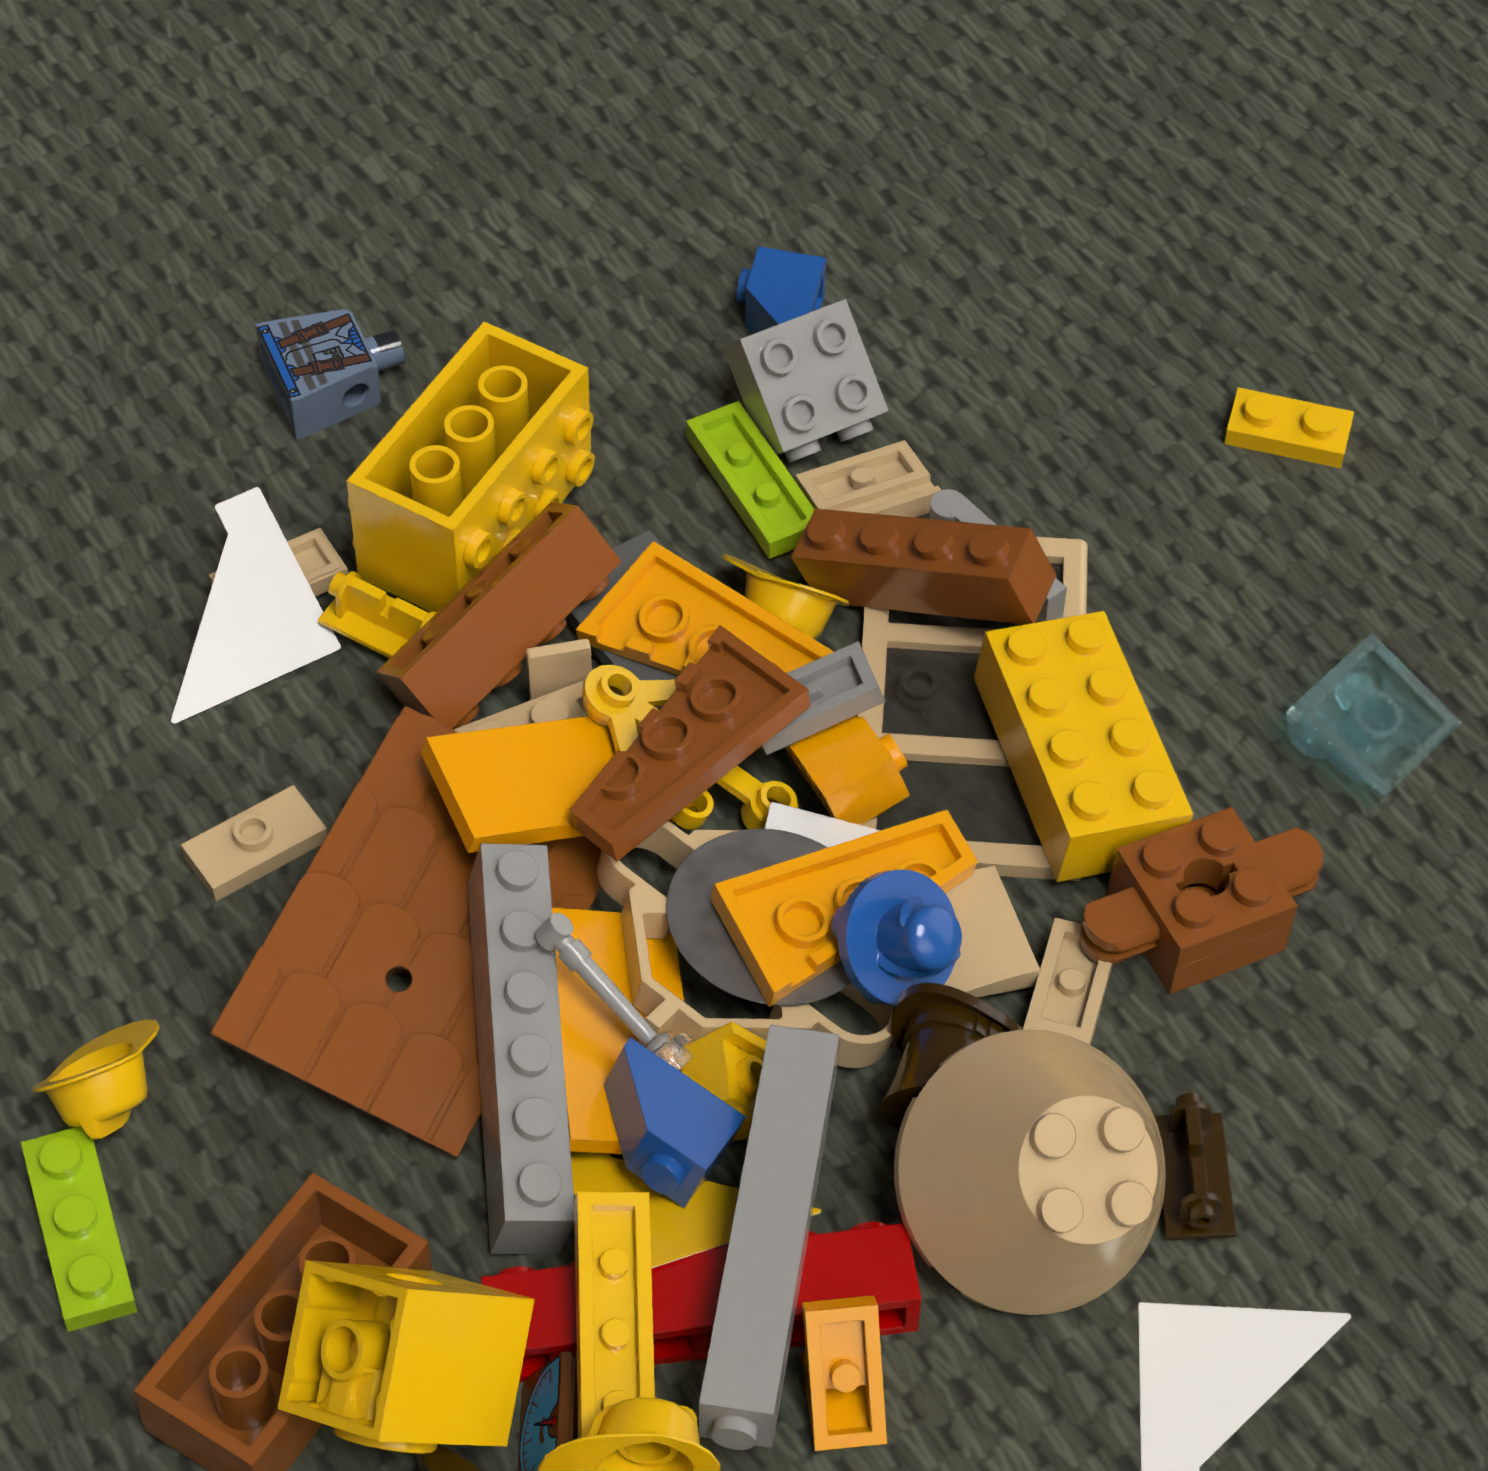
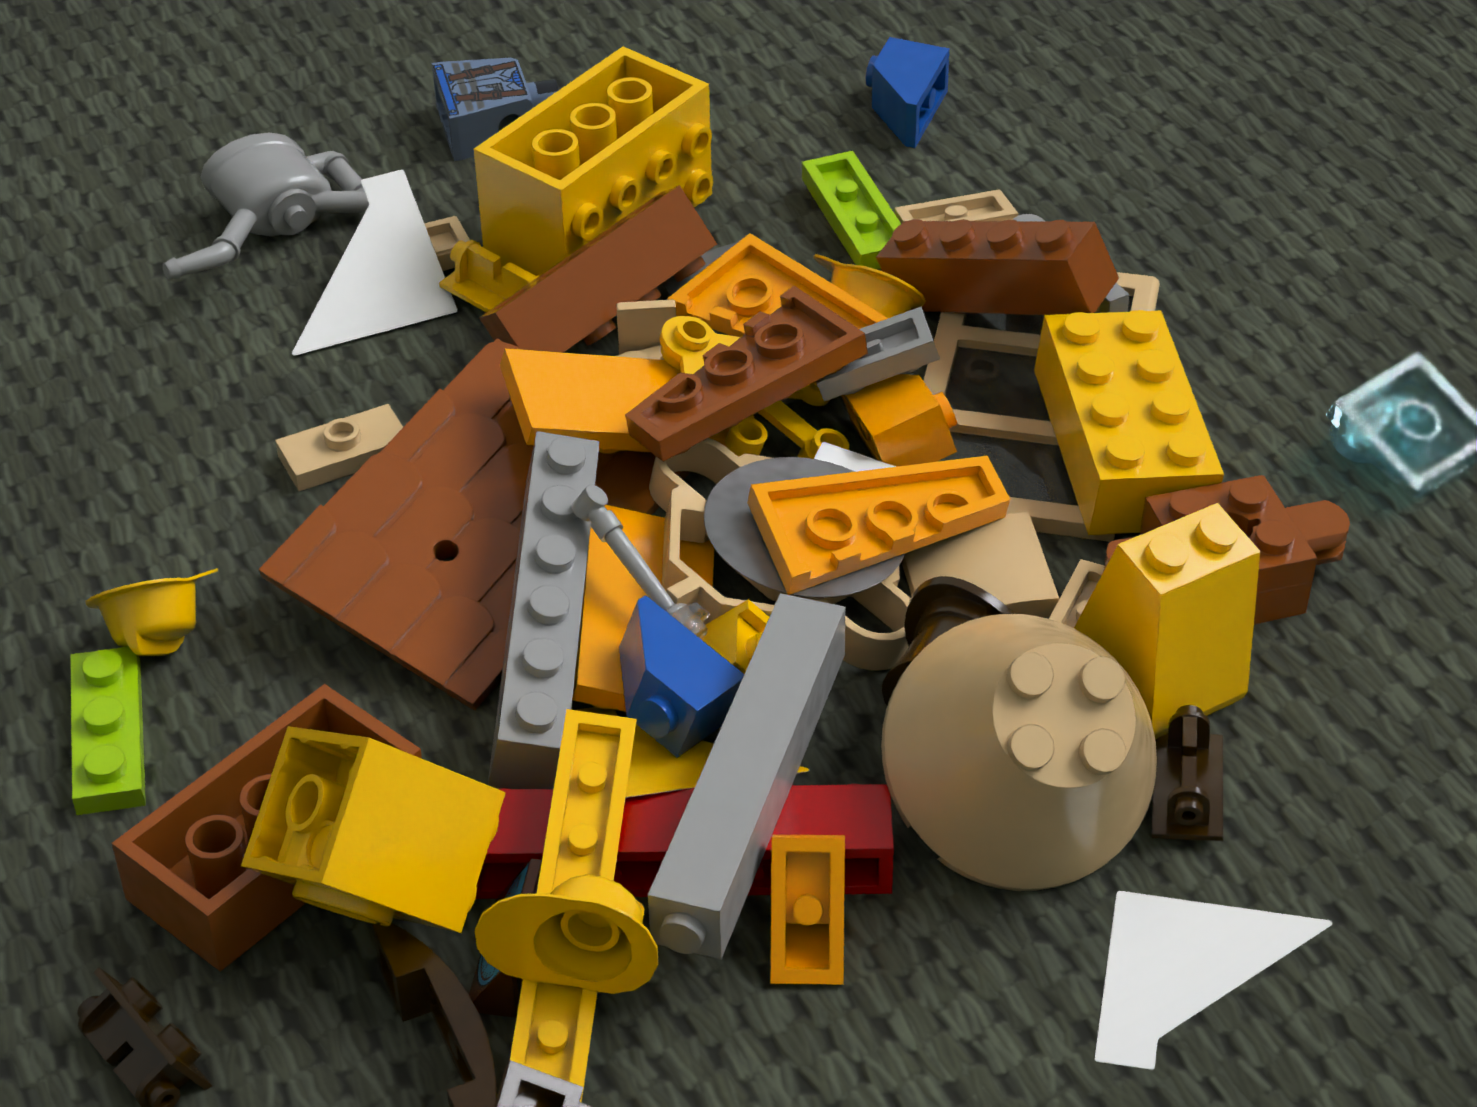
camera: 10 degrees right, 10 degrees down
(109, 514) = (269, 192): none -> light grey piece
(807, 380) = (915, 132): light grey brick -> none
(896, 934) = (916, 536): blue plate -> none
(1170, 1001) = (1180, 613): none -> yellow slope
(1289, 427) = (1363, 209): yellow plate -> none

